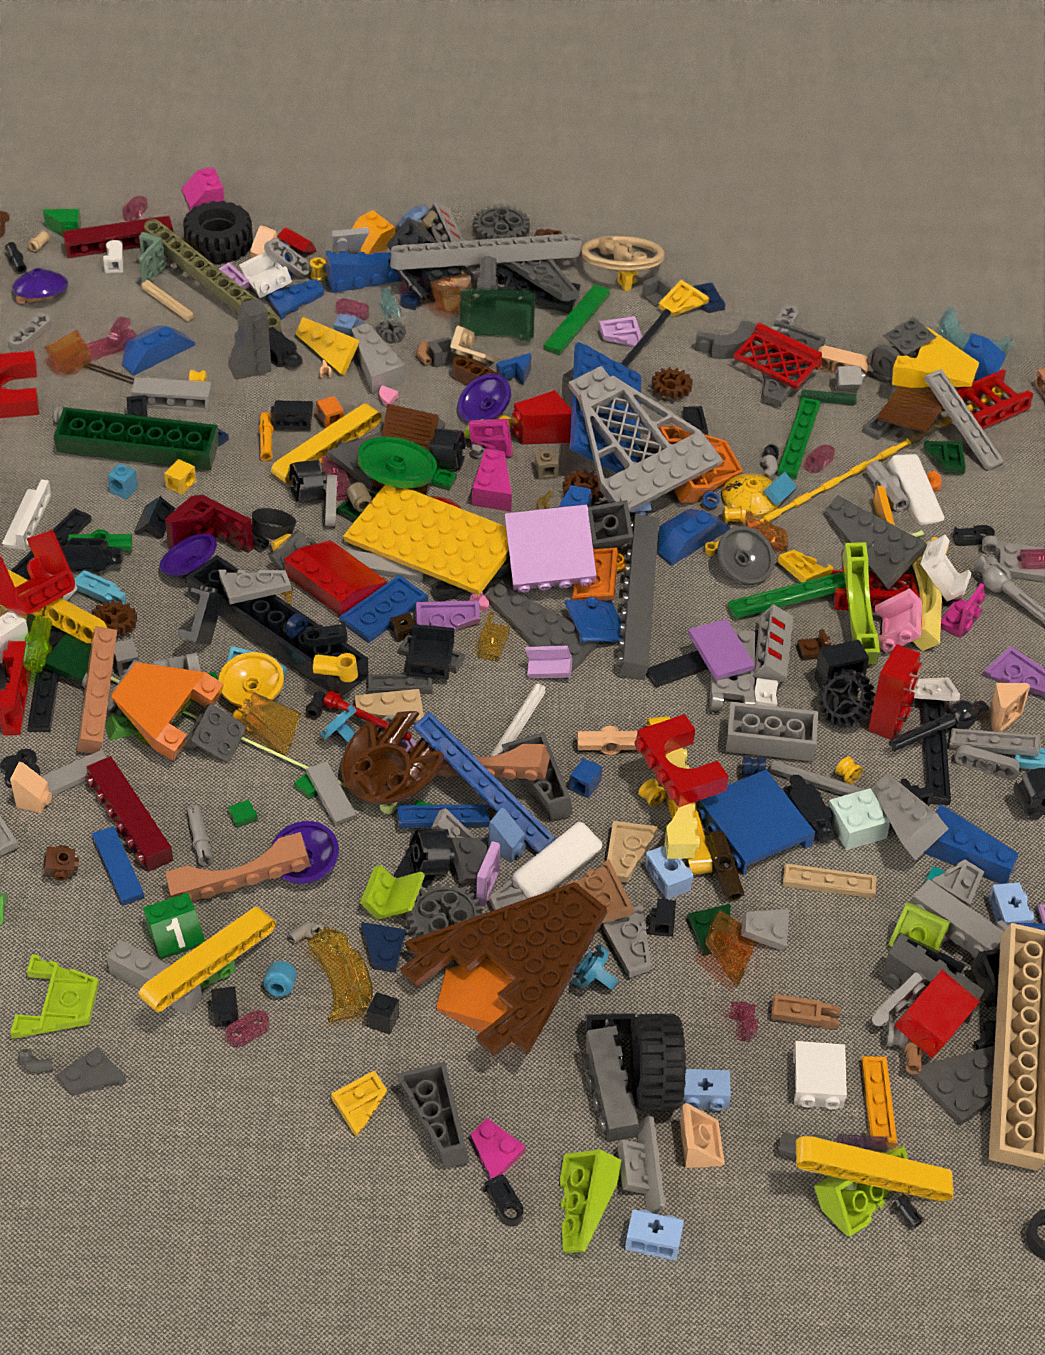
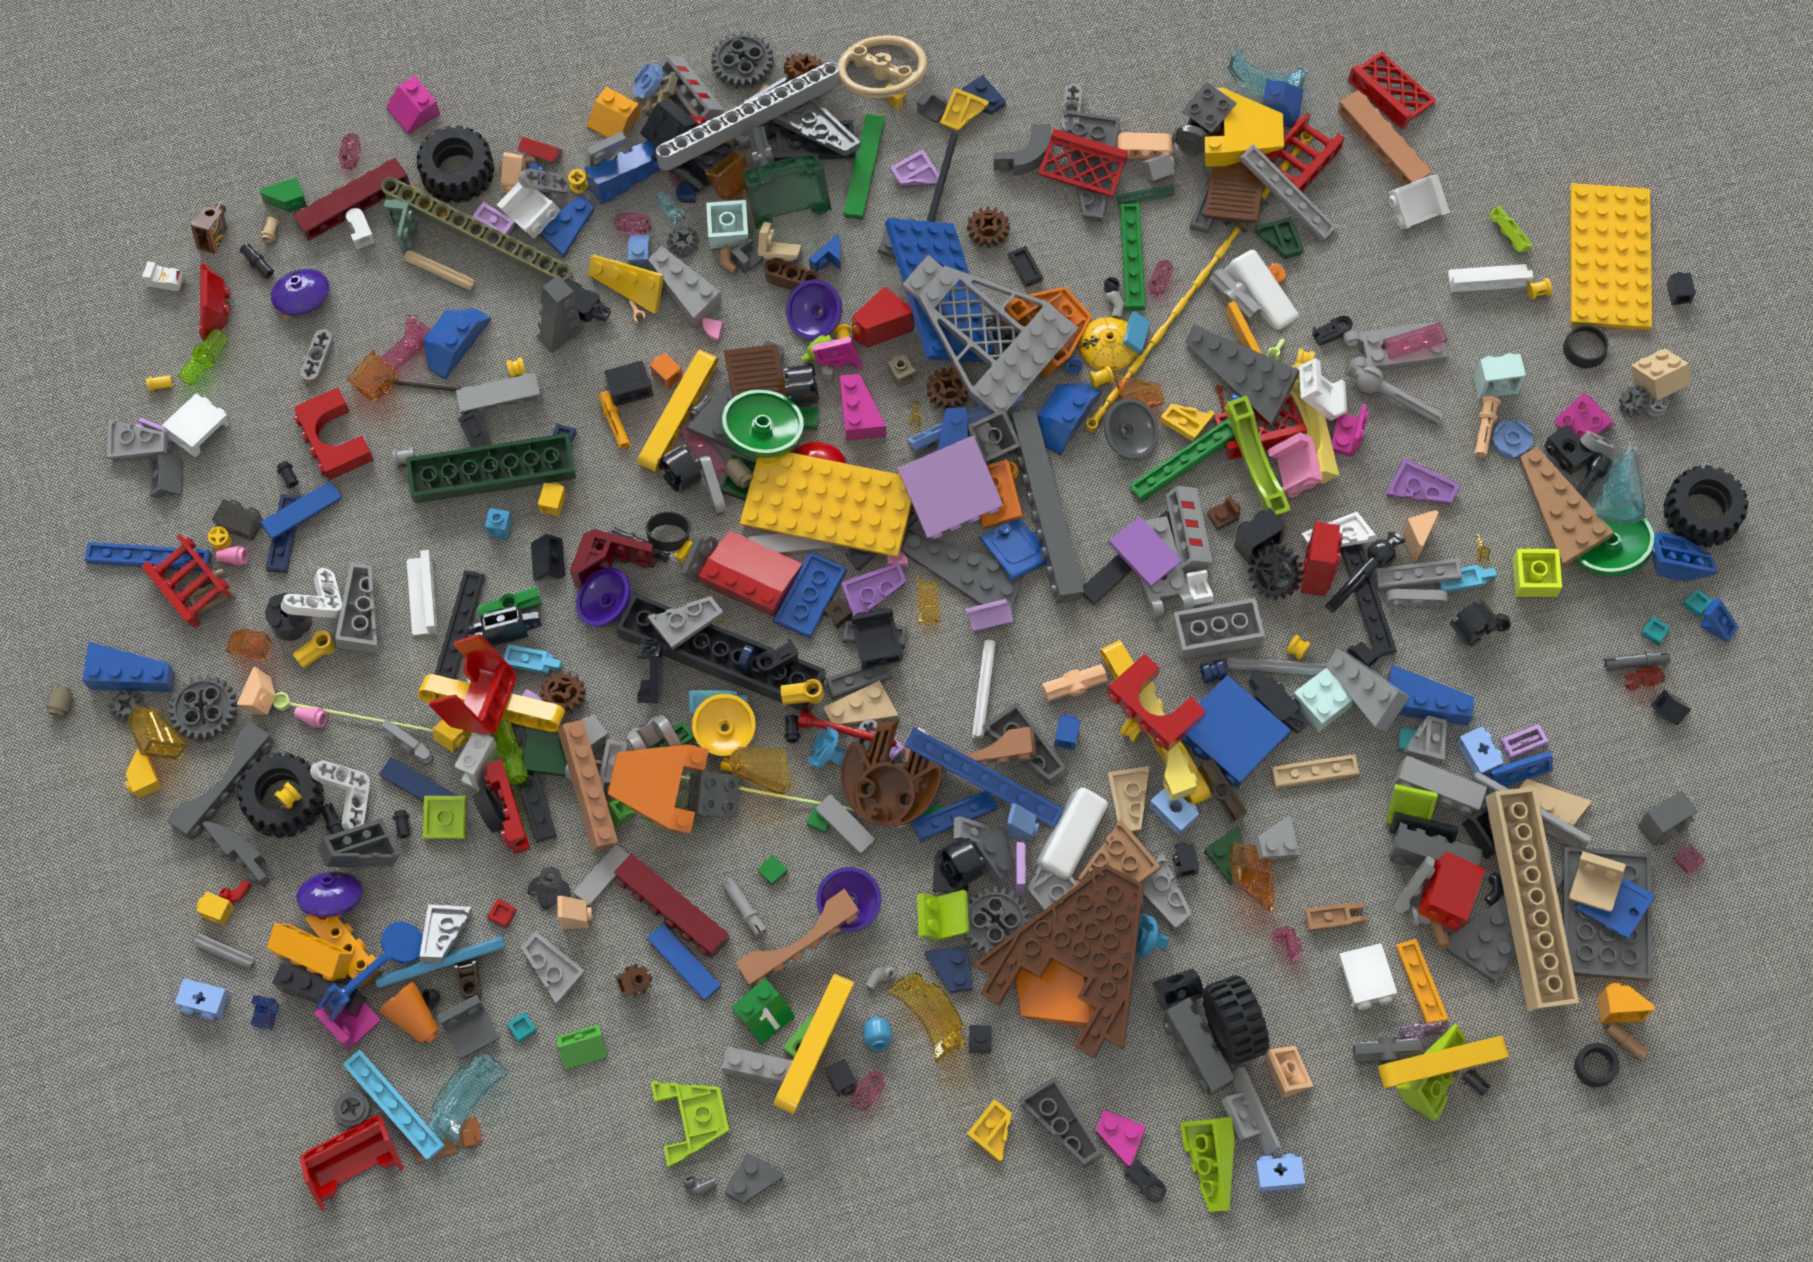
camera: 15 degrees left, 20 degrees up
(434, 323) = (727, 223): none -> light aqua brick
(707, 1089) = (1287, 1016): light blue brick -> none

